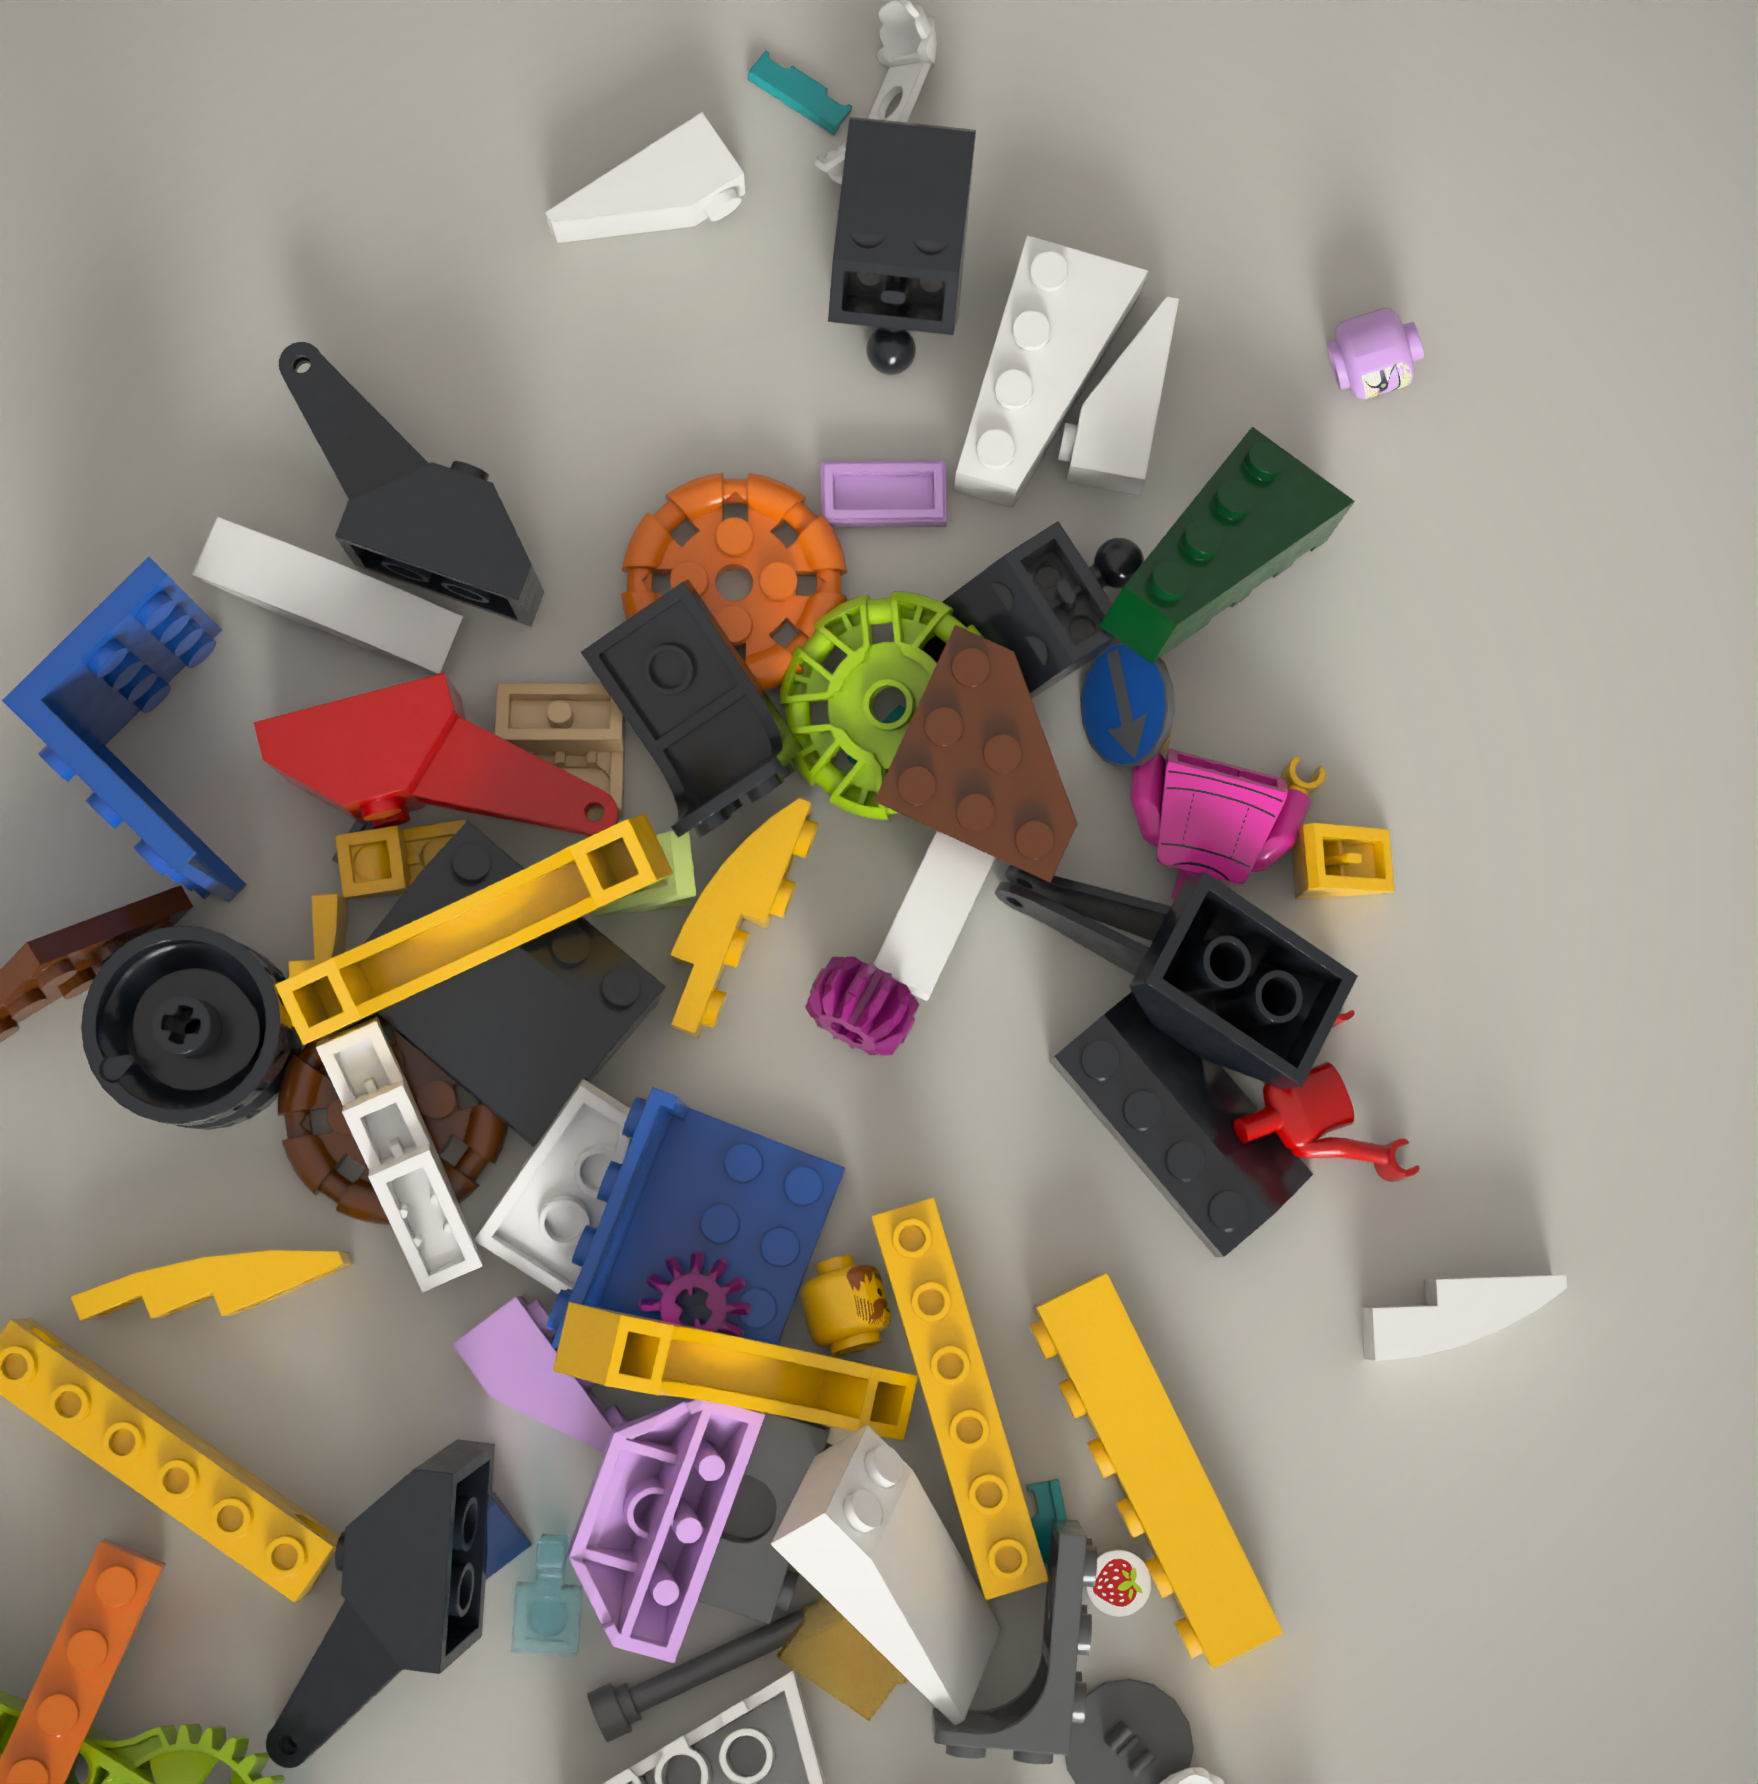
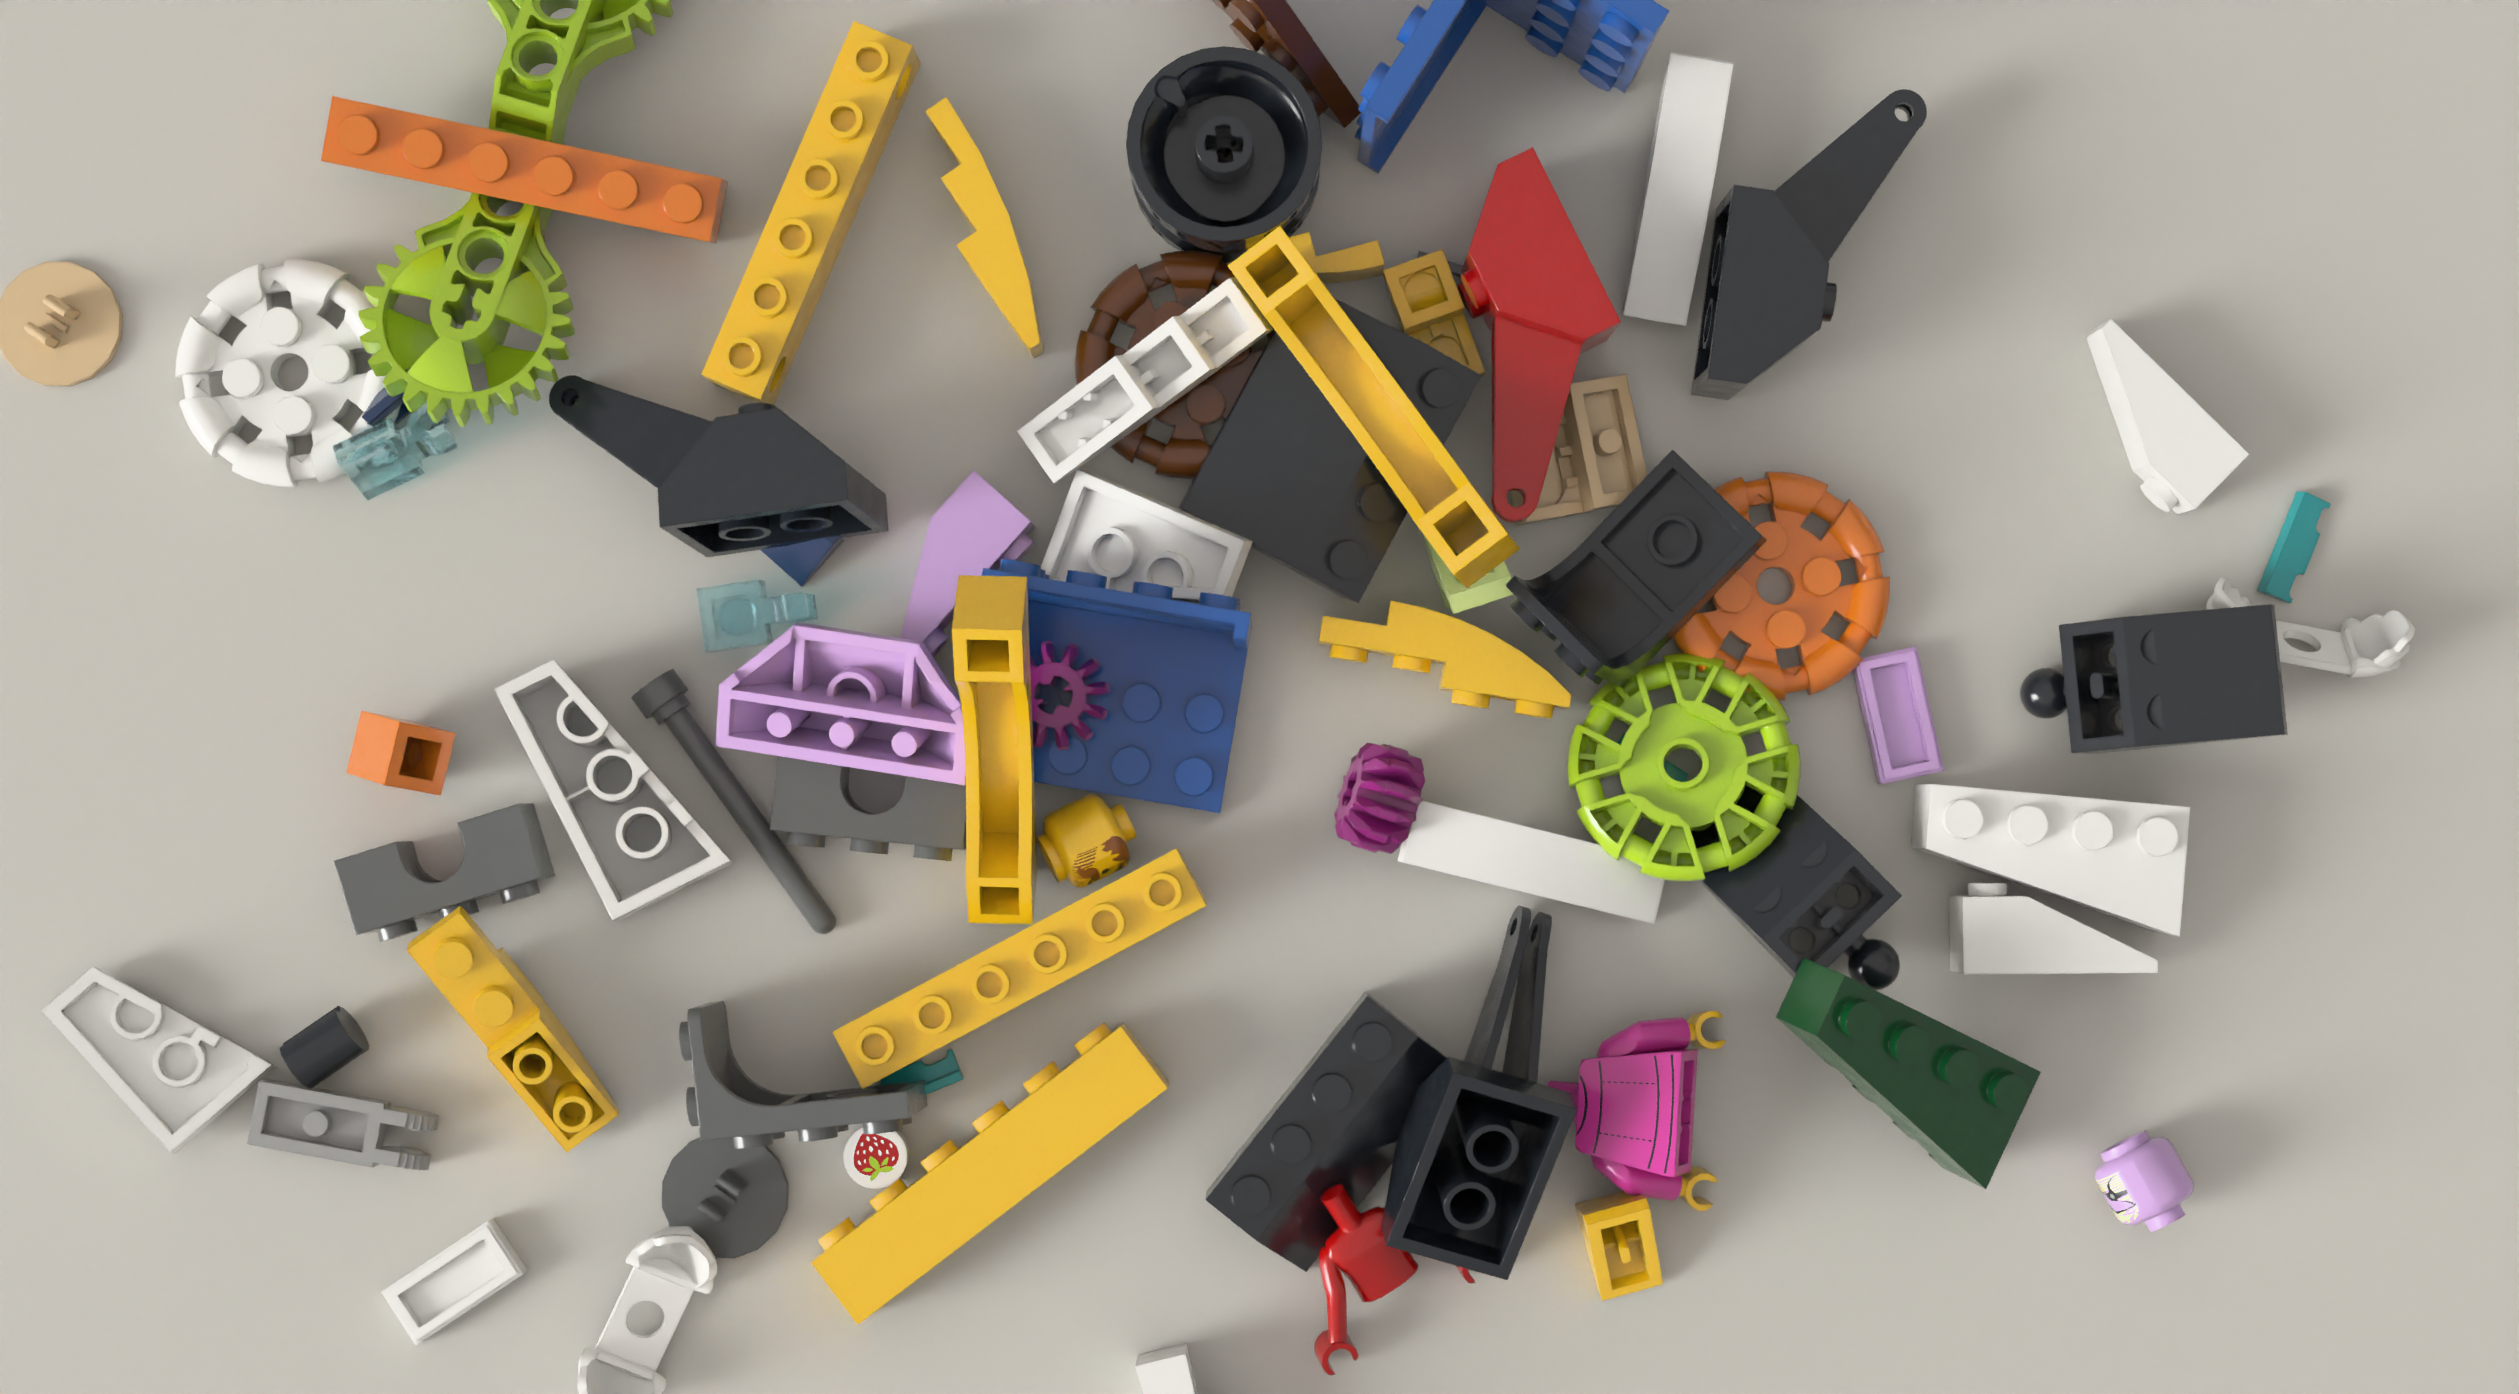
camera: 85 degrees right, 5 degrees up
(840, 1659) = (768, 914): clear yellow piece -> none
(891, 1568) = (844, 935): white slope -> none
(982, 761) = (1643, 866): reddish brown plate -> none
(1126, 706) = (1730, 1000): blue piece -> none

